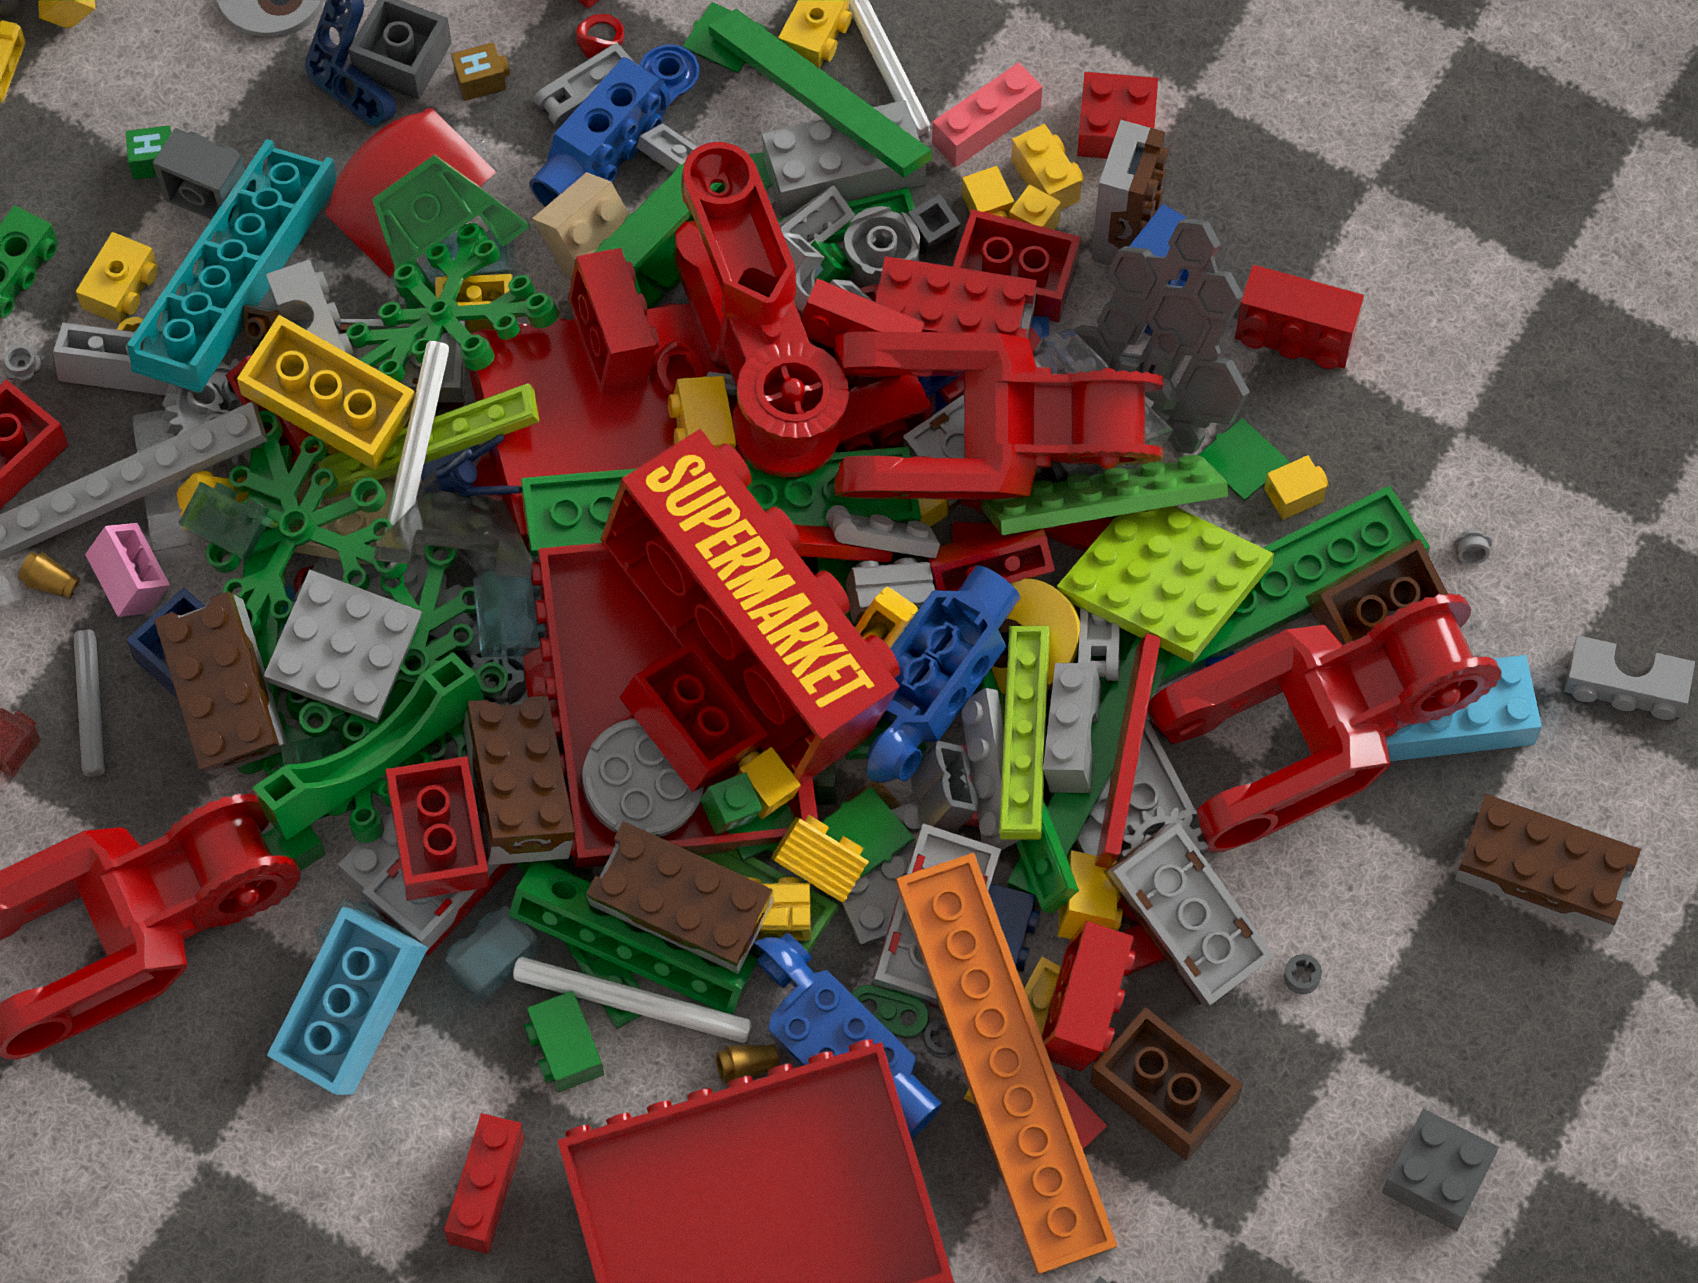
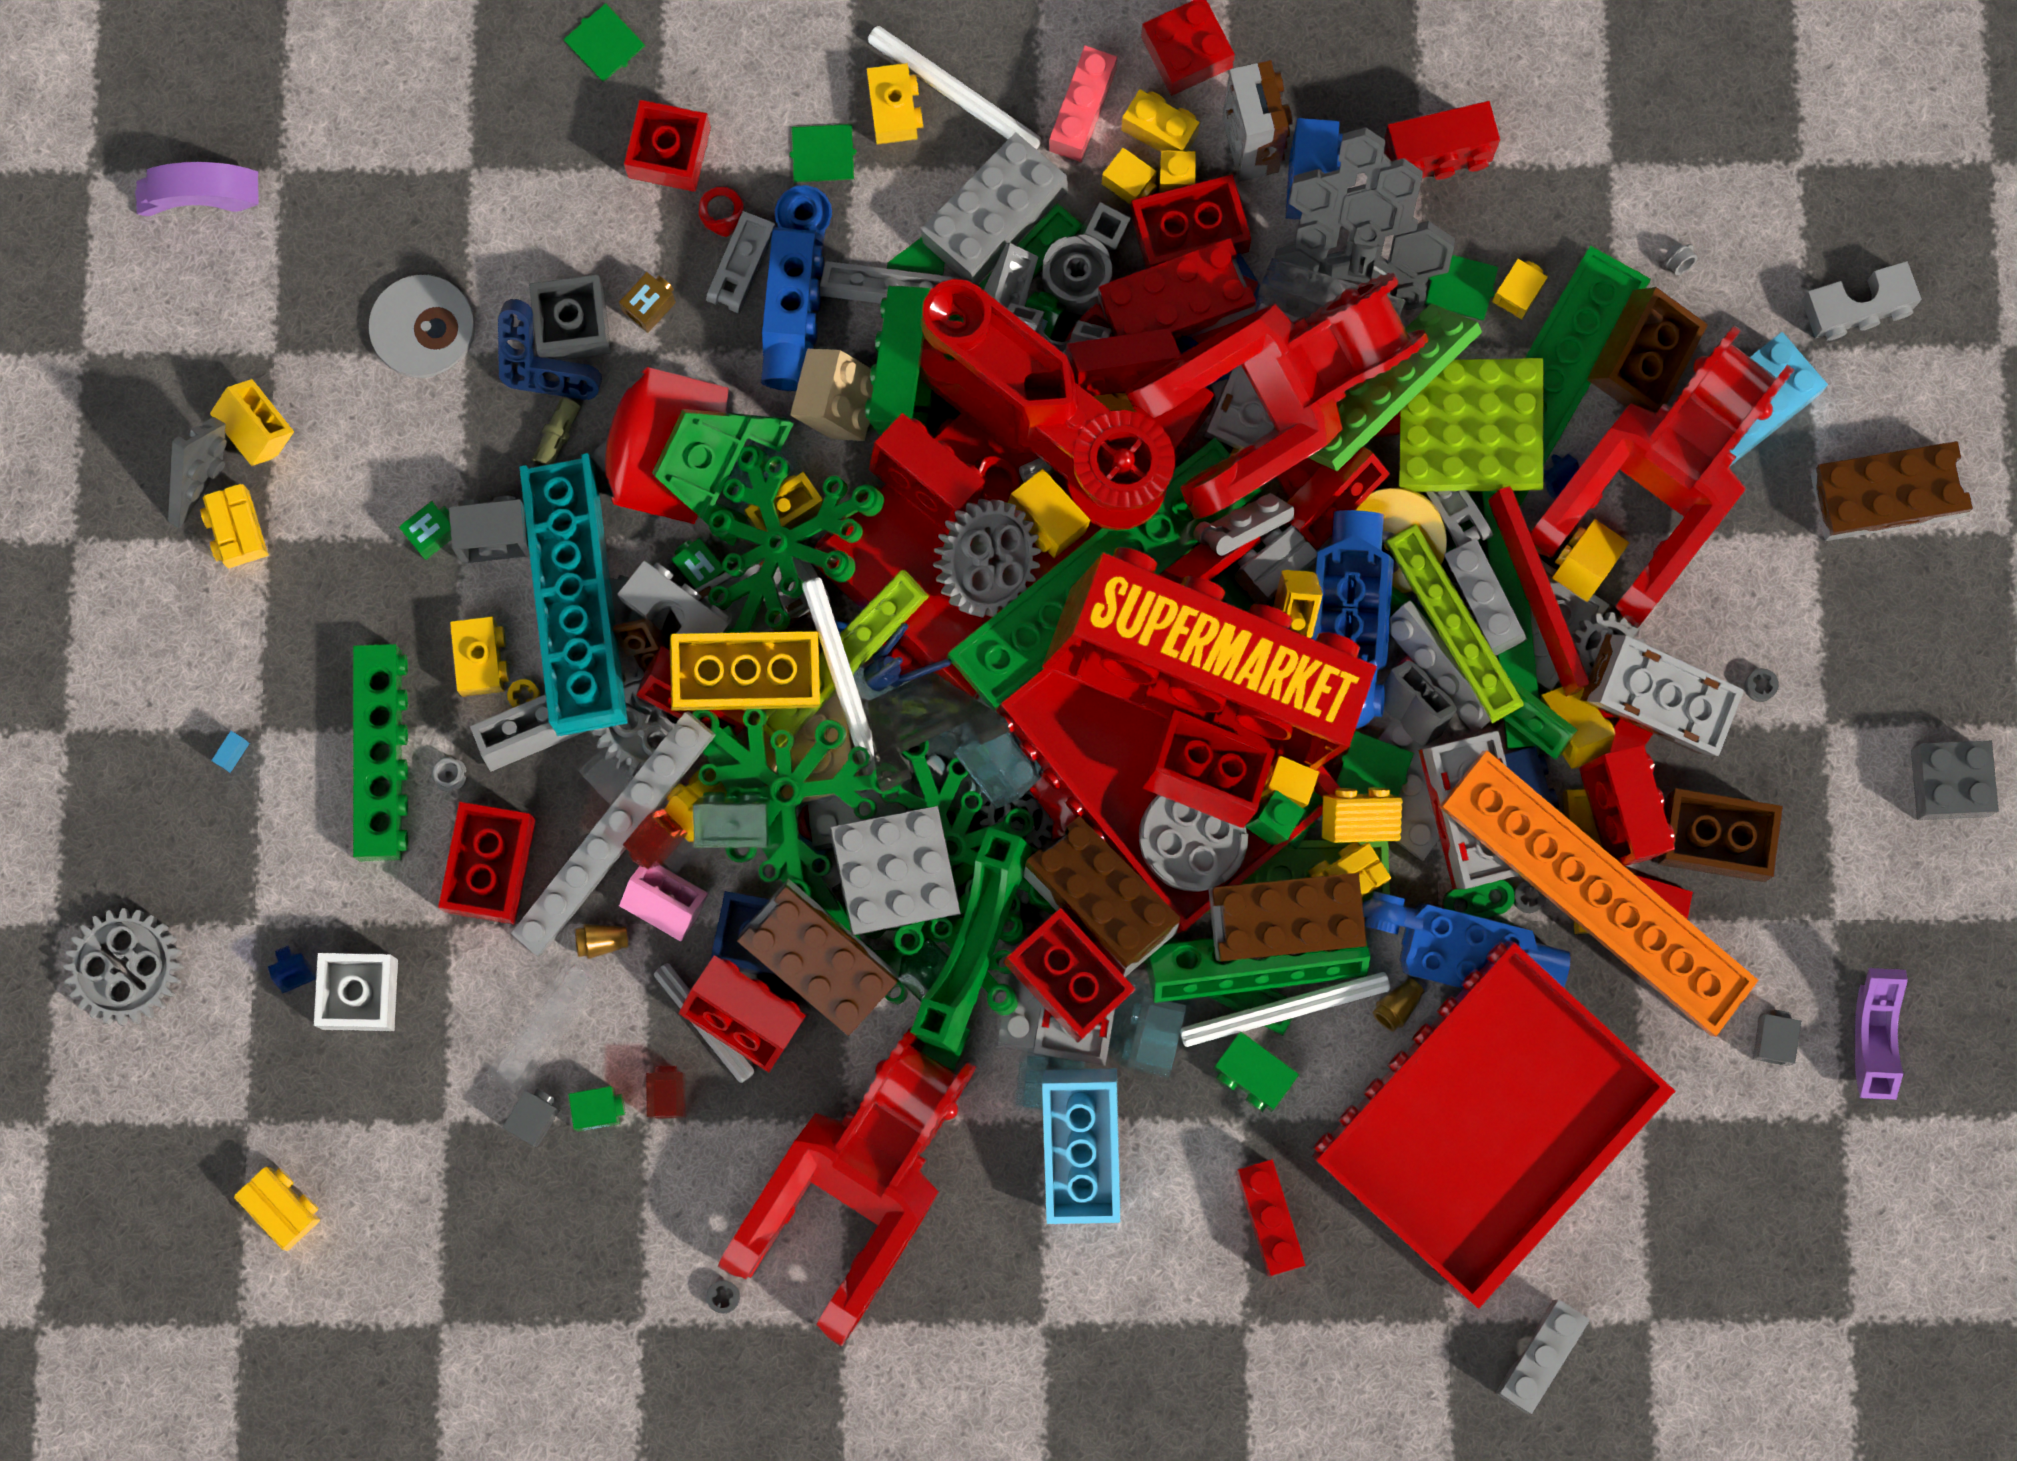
camera: 30 degrees left, 15 degrees up
(122, 702) = (742, 1013): none -> red brick
(151, 504) = (654, 839): none -> clear red brick
(323, 134) = (556, 432): none -> olive pin
(363, 300) = (696, 563): none -> green brick
(583, 402) = (986, 557): none -> light grey gear
(820, 93) = (945, 166): green tile -> none
(1201, 757) = (1590, 560): none -> yellow brick

